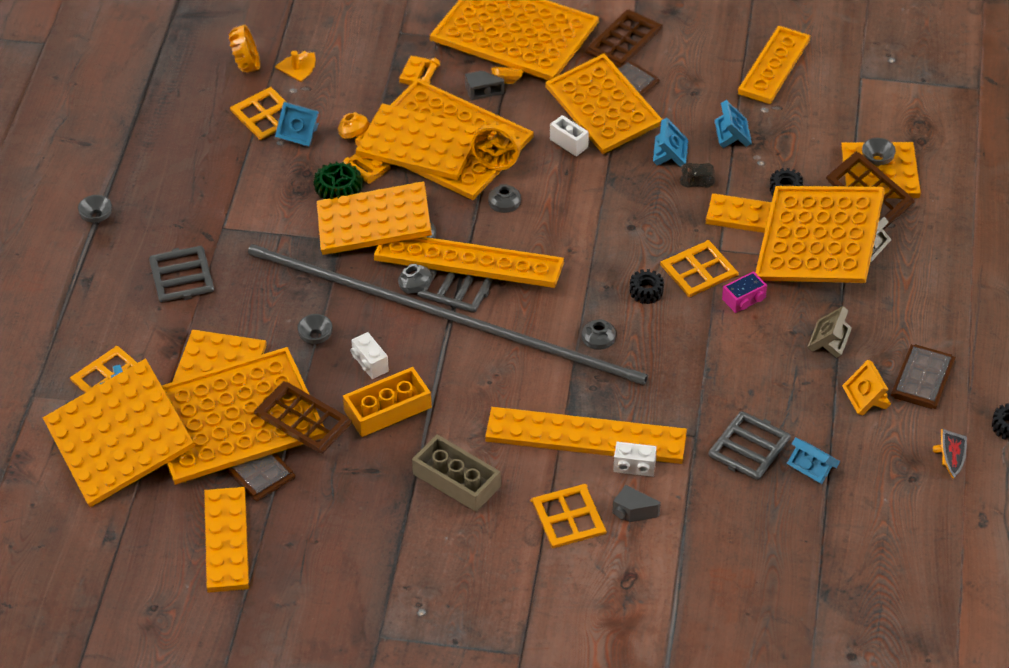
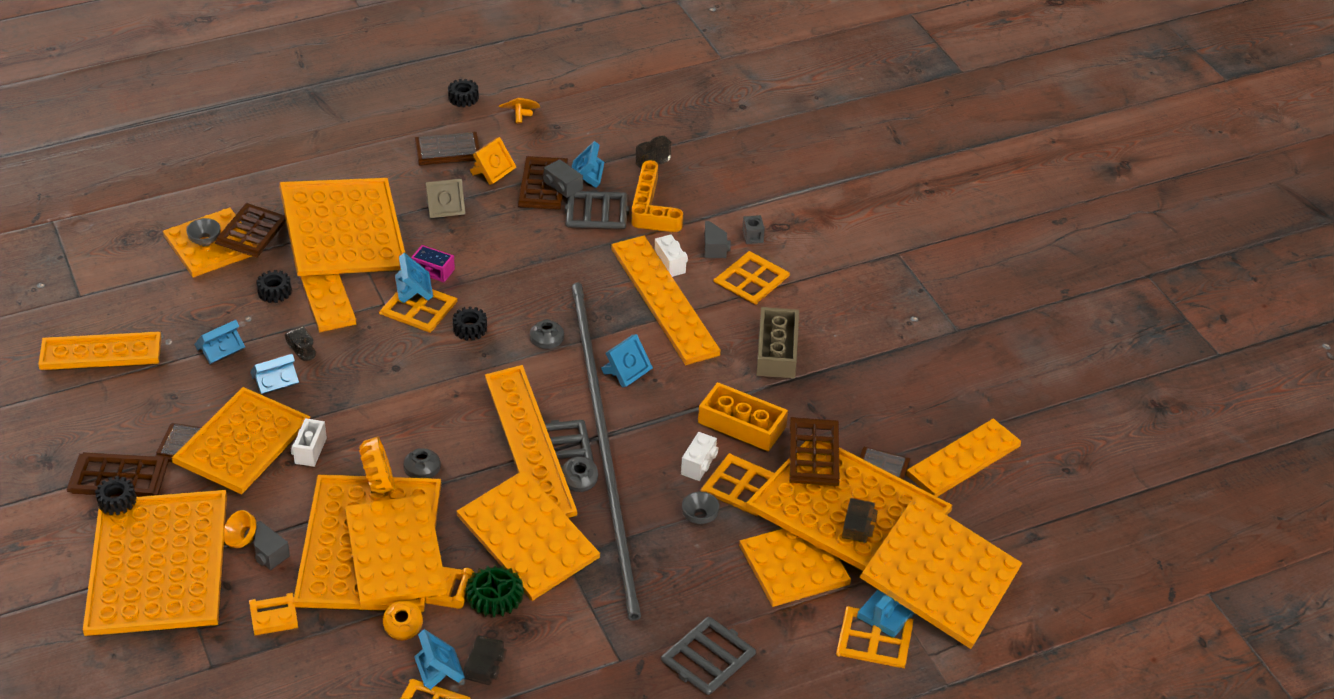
camera: 125 degrees left, 5 degrees down
(203, 396) = (859, 520): none -> clear smoke brick
(281, 152) = (484, 660): none -> clear smoke brick
(325, 377) = (740, 484): none -> light orange window
(513, 359) = (627, 361): none -> dark azure bracket
(589, 19) = (114, 487): none -> black tyre
(631, 545) = (753, 229): none -> dark grey brick
(721, 261) = (412, 279): none -> dark azure bracket
(734, 481) = (644, 213): none -> light orange beam
(800, 518) = (656, 150): none -> clear smoke brick
(805, 425) = (563, 178): none -> dark grey brick
(851, 442) = (538, 203): none -> reddish brown piece

